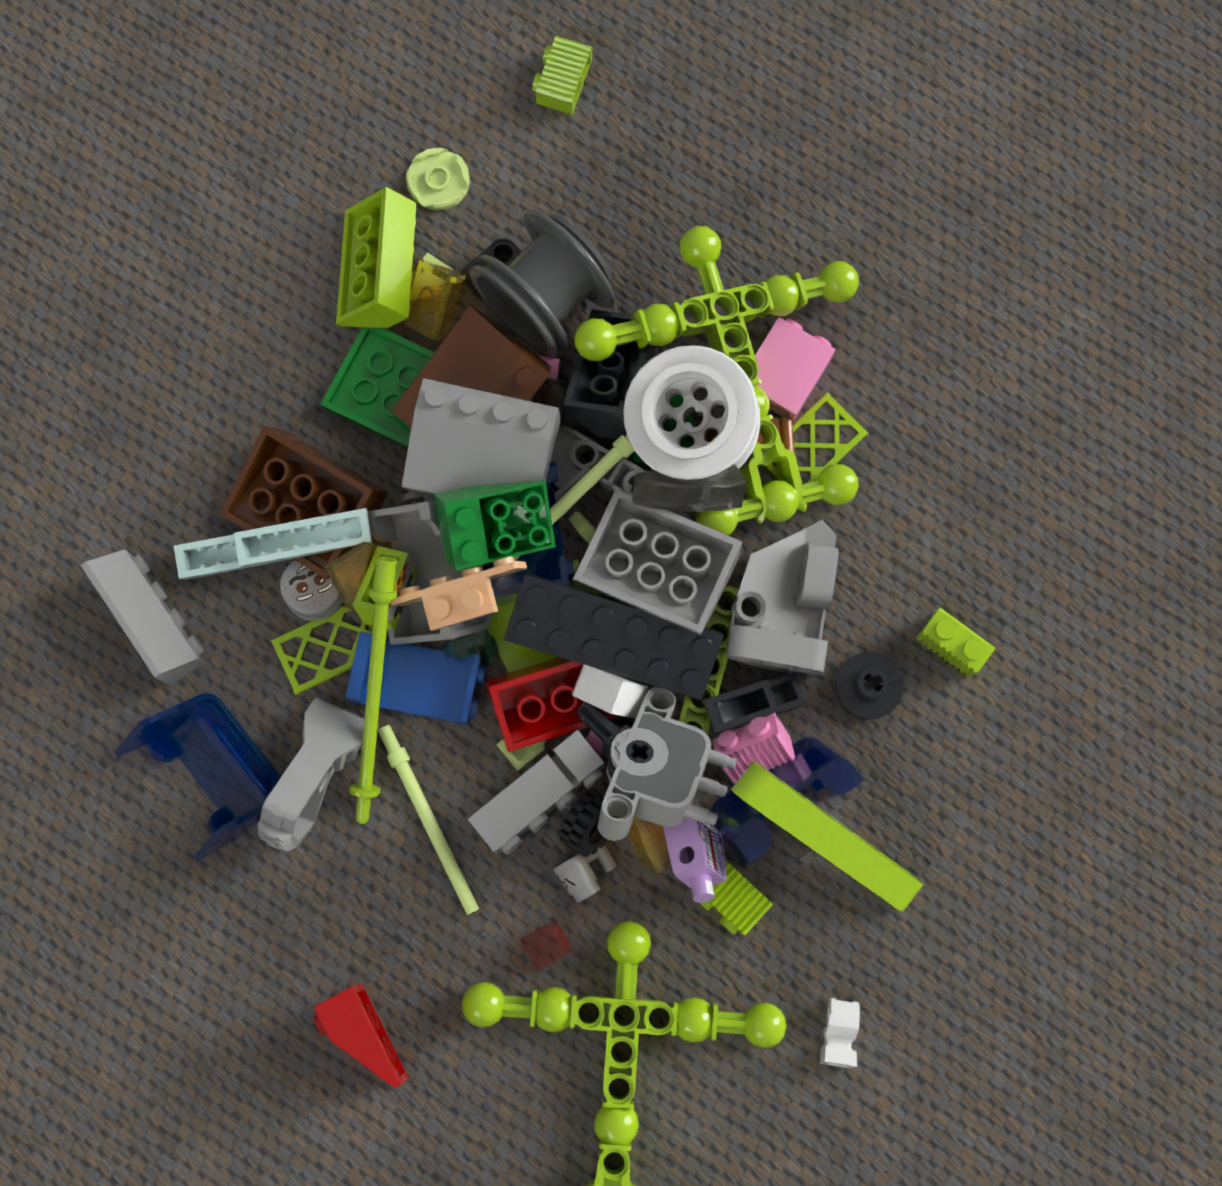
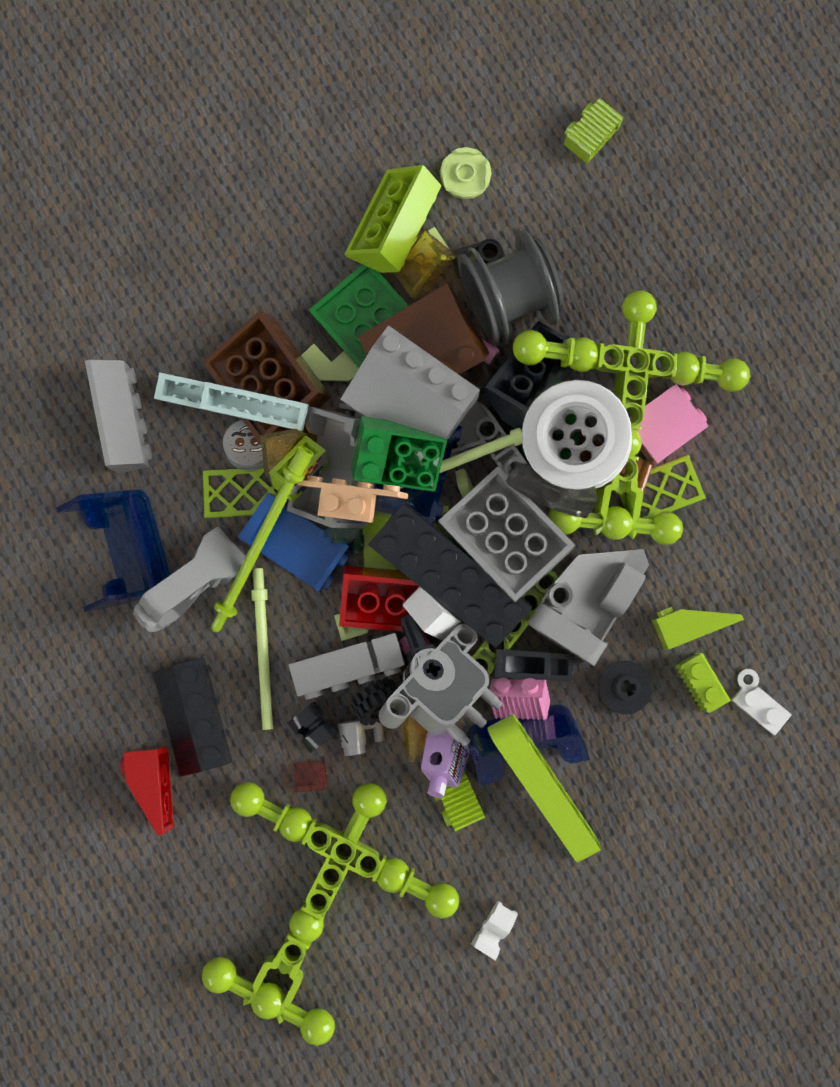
camera: 25 degrees right, 5 degrees up
(376, 935) = (192, 717): none -> black slope
(384, 459) = (339, 370): none -> yellowish green tile
(525, 885) = (312, 727): none -> black wheel
(908, 584) = (686, 625): none -> lime slope
(1031, 641) = (759, 704): none -> white hinge

